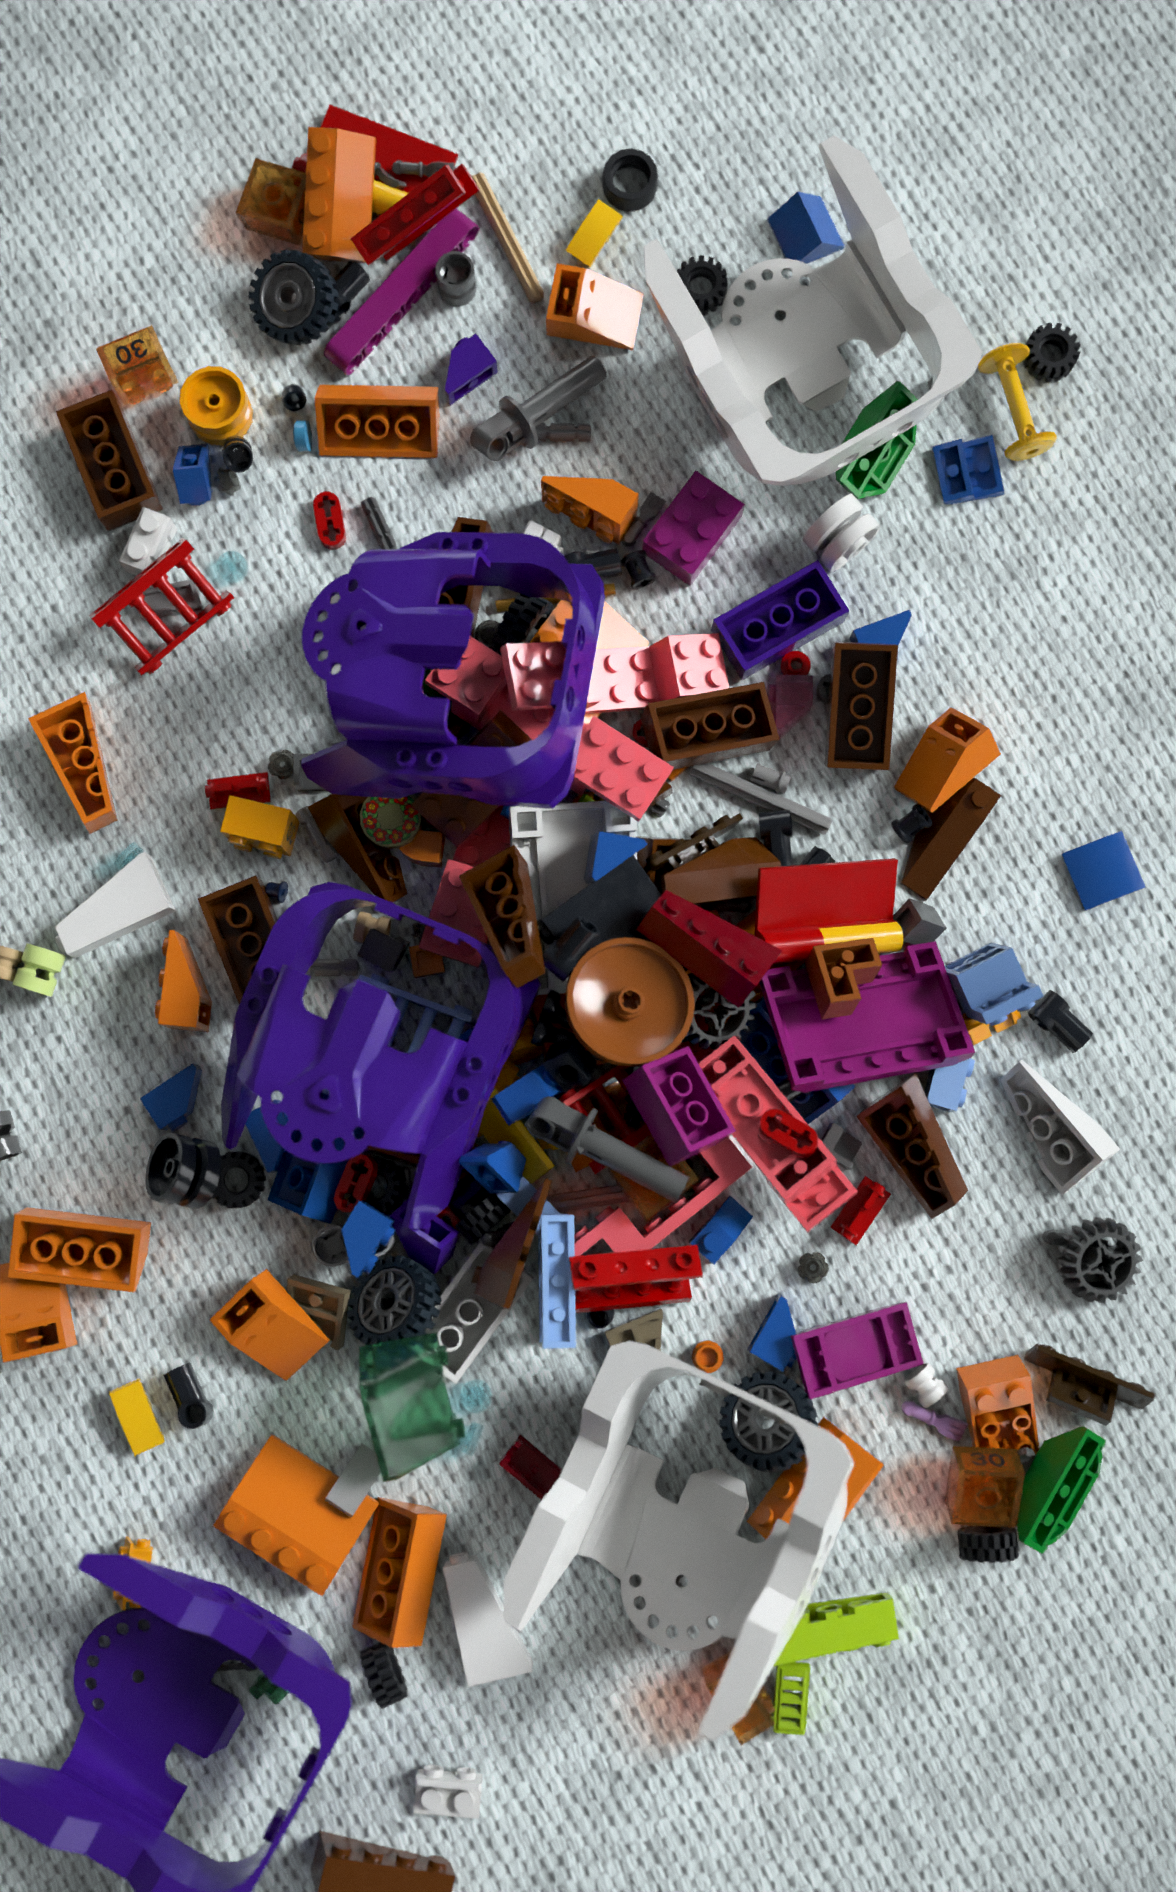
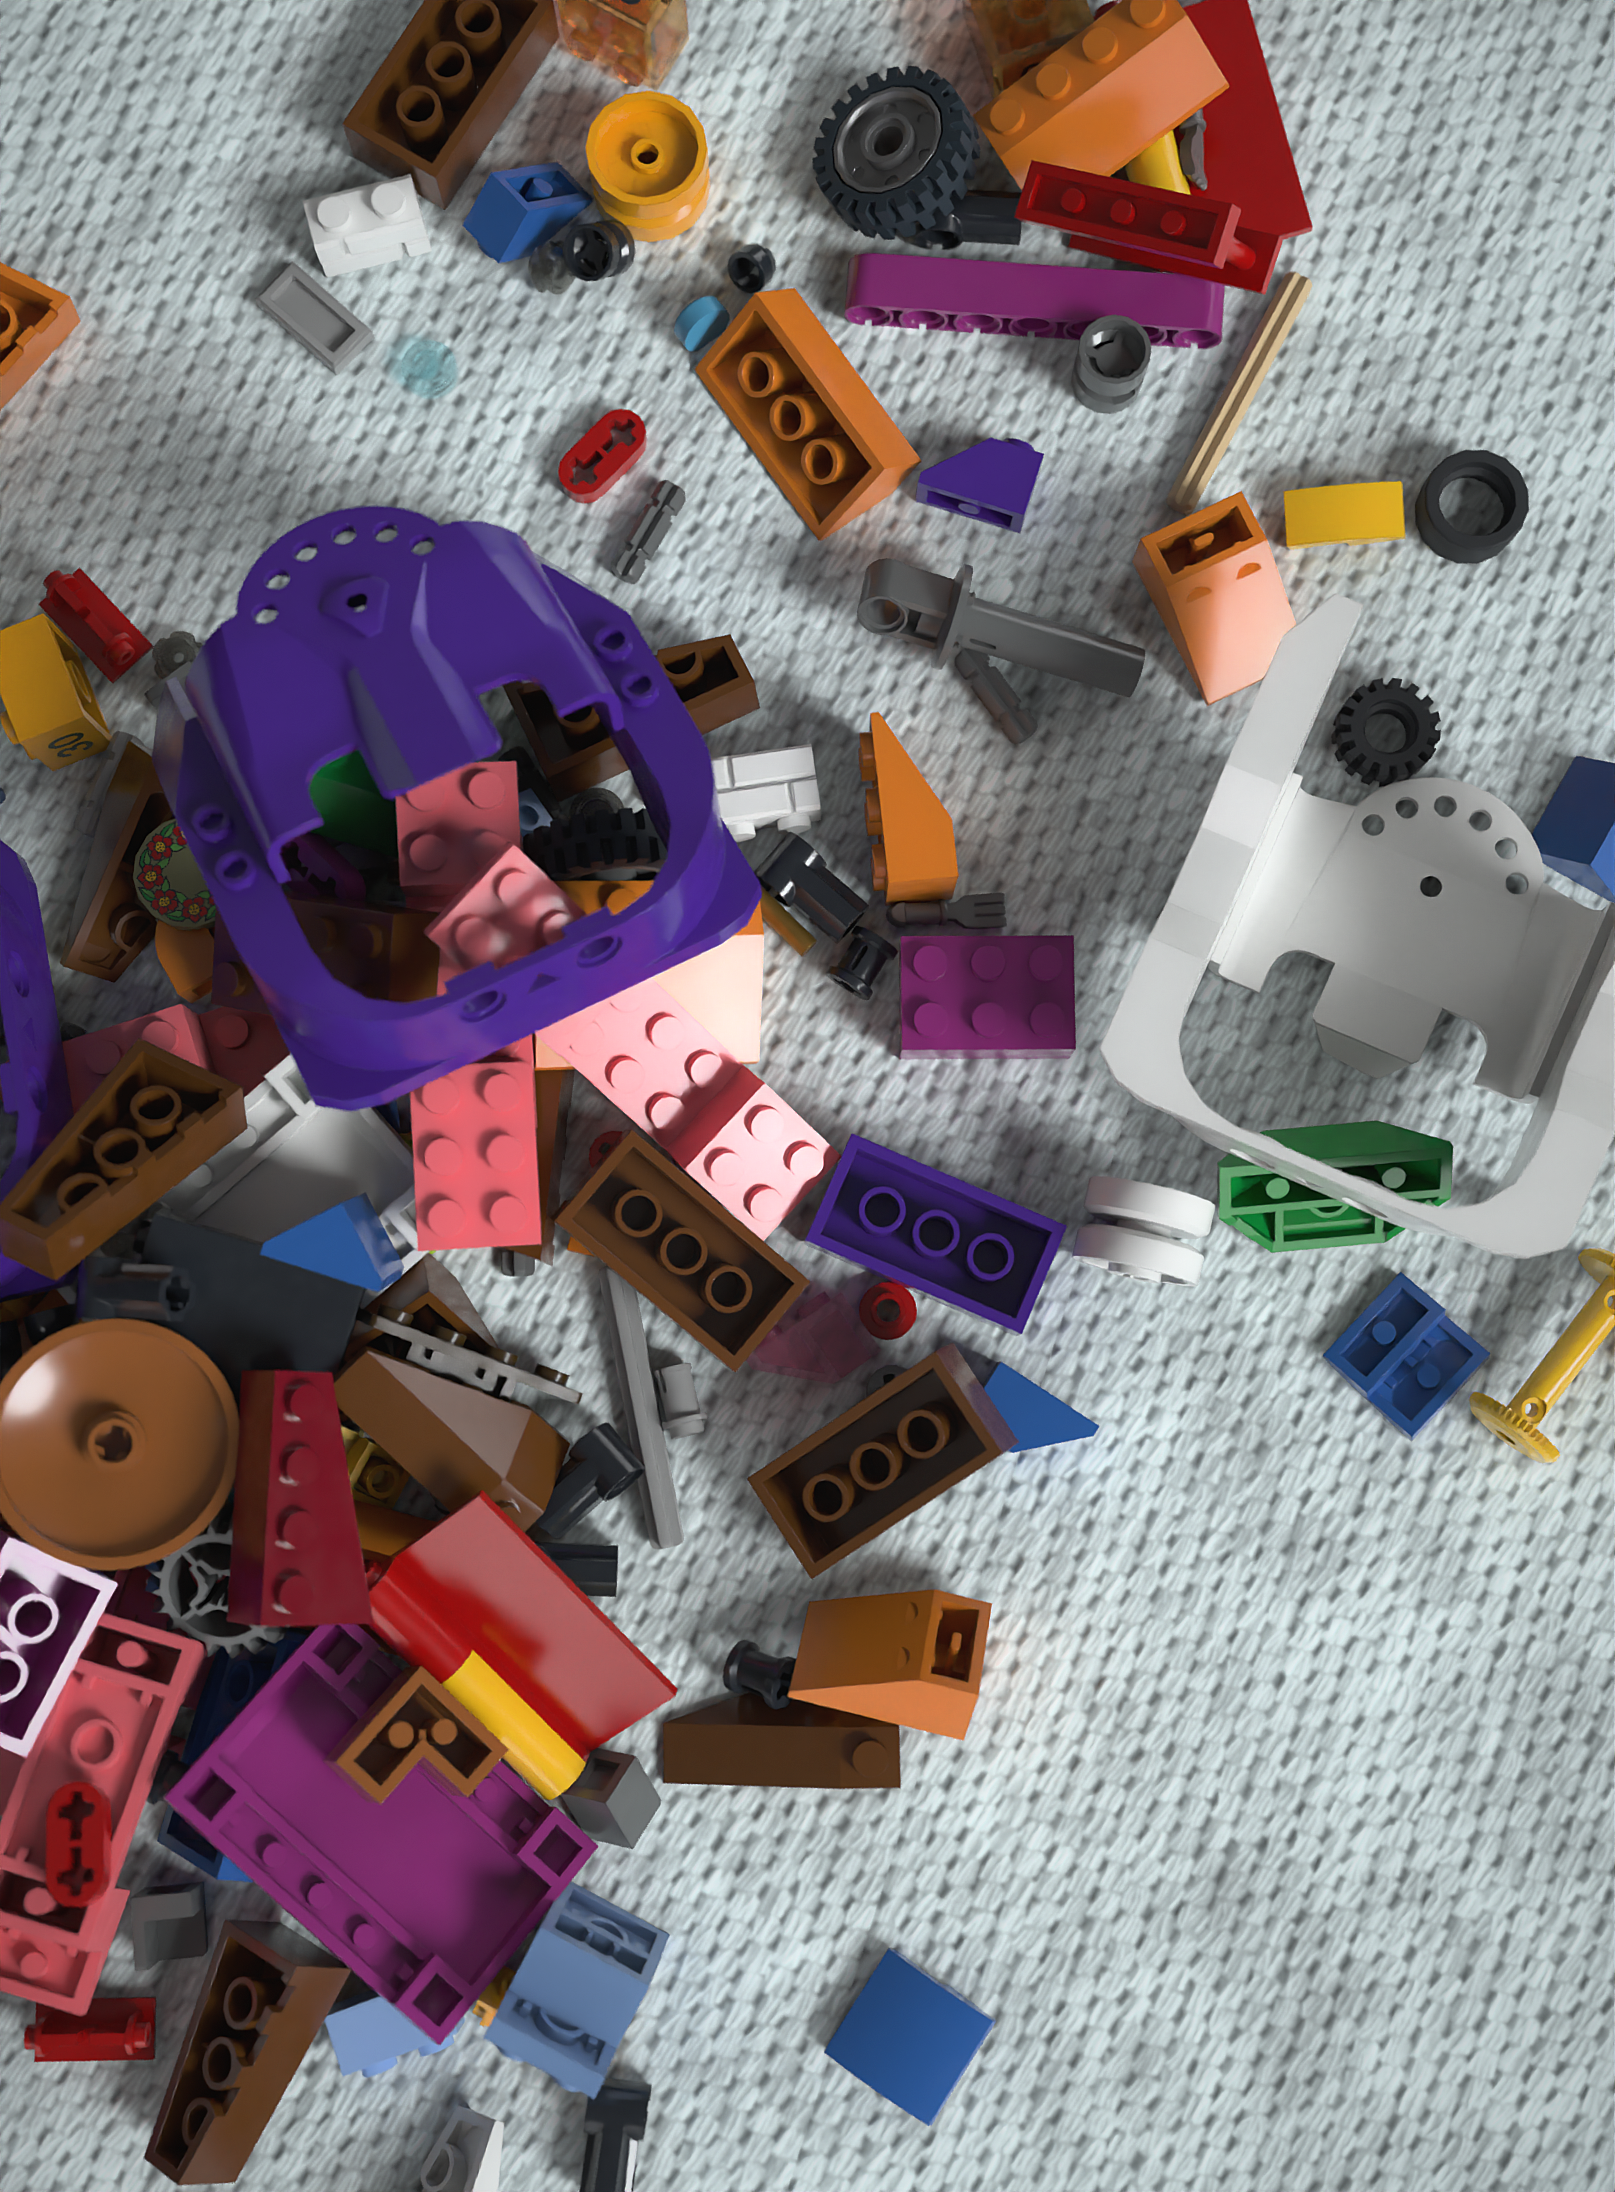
camera: 55 degrees right, 0 degrees up
(133, 596) = (313, 269): red fence -> none
(418, 169) = (1256, 211): dark grey piece -> none

